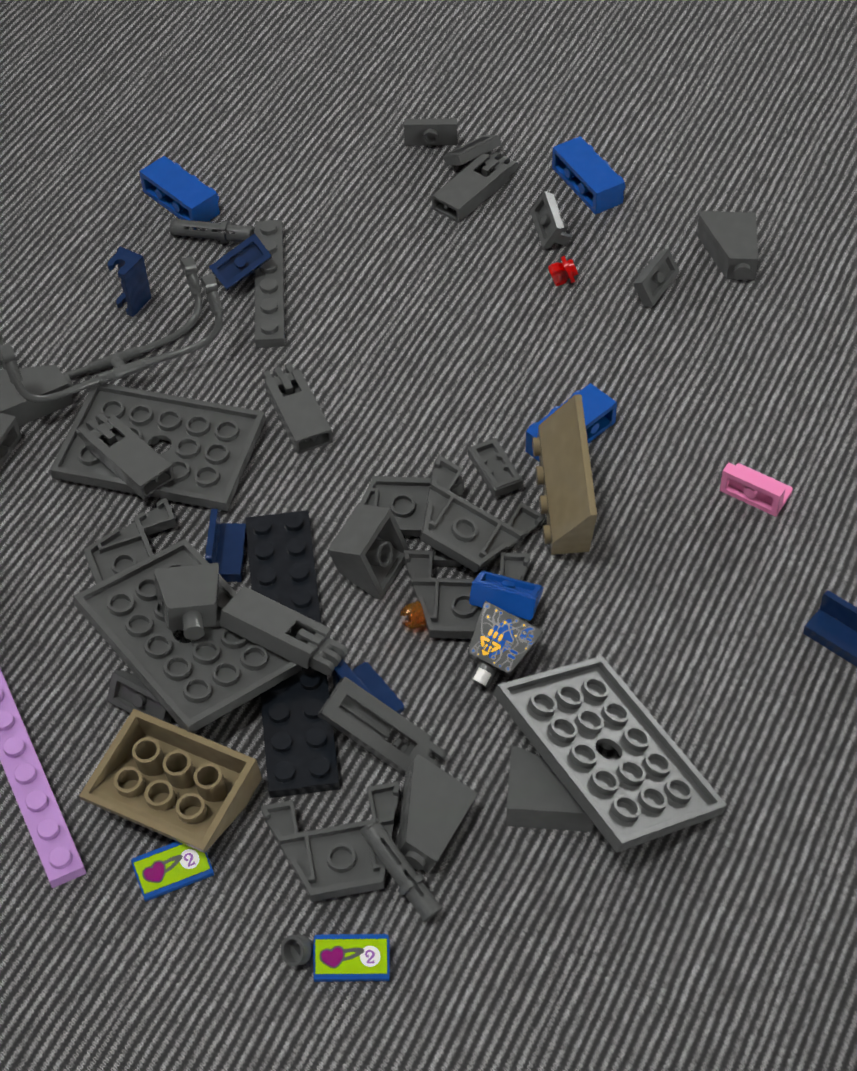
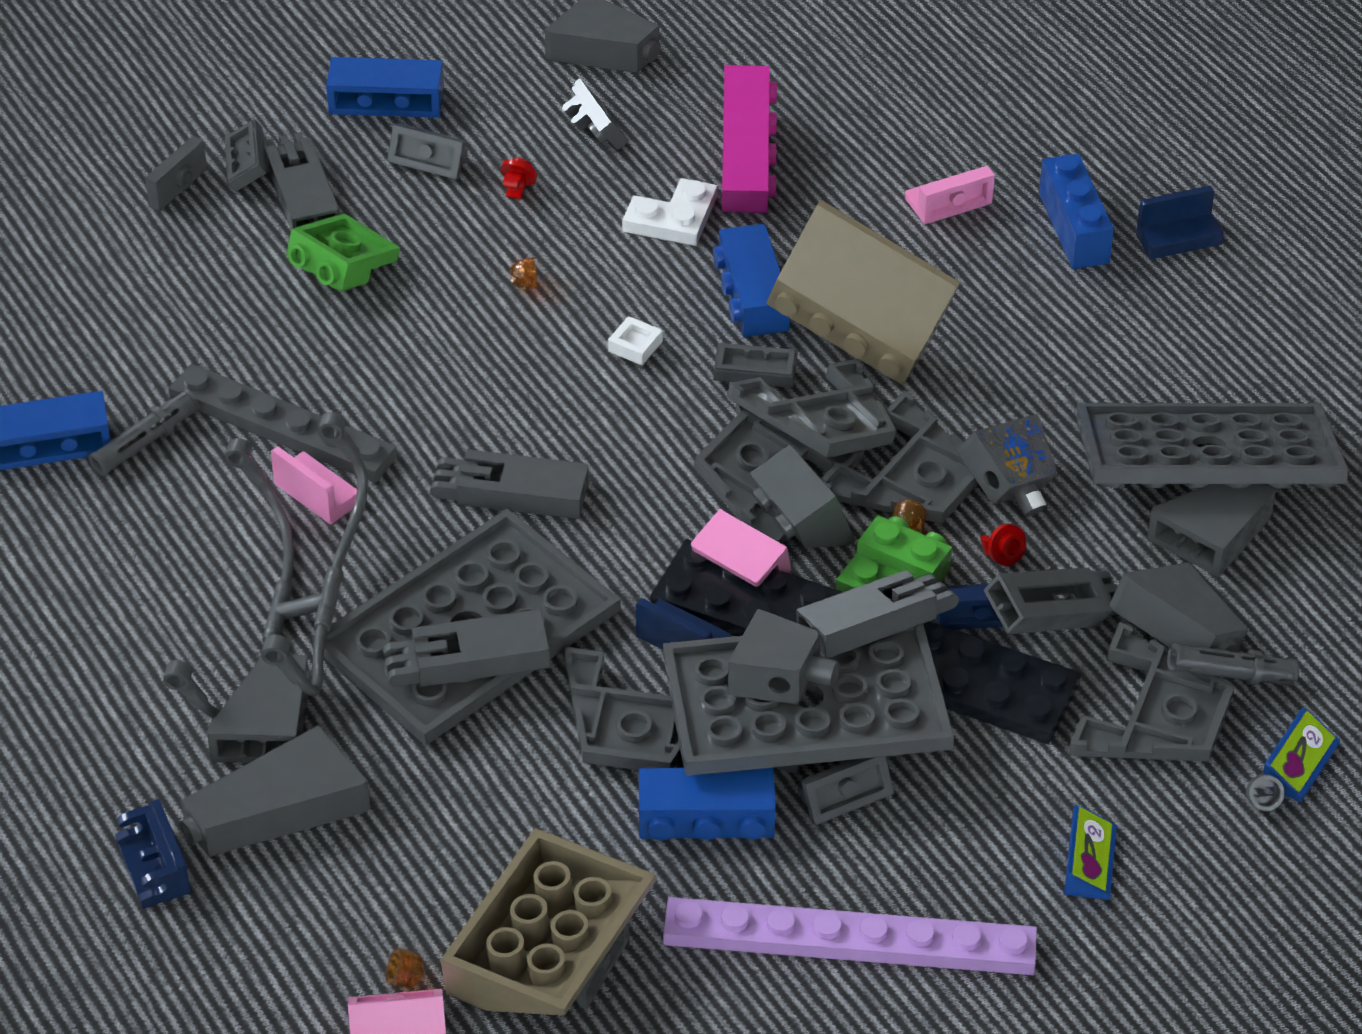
camera: 60 degrees left, 5 degrees down
(74, 634) = (706, 804): none -> blue brick
(133, 280) = (179, 529): dark blue hinge -> none
(172, 781) = (991, 794): dark tan slope -> none
(234, 318) = (313, 484): none -> bright pink panel
(240, 262) = (239, 412): dark blue panel -> none
(309, 541) = (741, 549): none -> bright pink panel
(367, 629) = (893, 547): none -> bright green plate
(425, 229) = (340, 251): none -> bright green plate
(430, 680) = (1005, 544): none -> red plate
(466, 398) = (635, 340): none -> white plate
(483, 319) = (524, 273): none -> clear orange hinge
(507, 593) = (946, 430): blue slope -> none
(605, 366) = (676, 220): none -> white plate
(695, 355) = (746, 139): none -> dark pink wedge
(796, 562) = (1076, 211): none -> blue brick

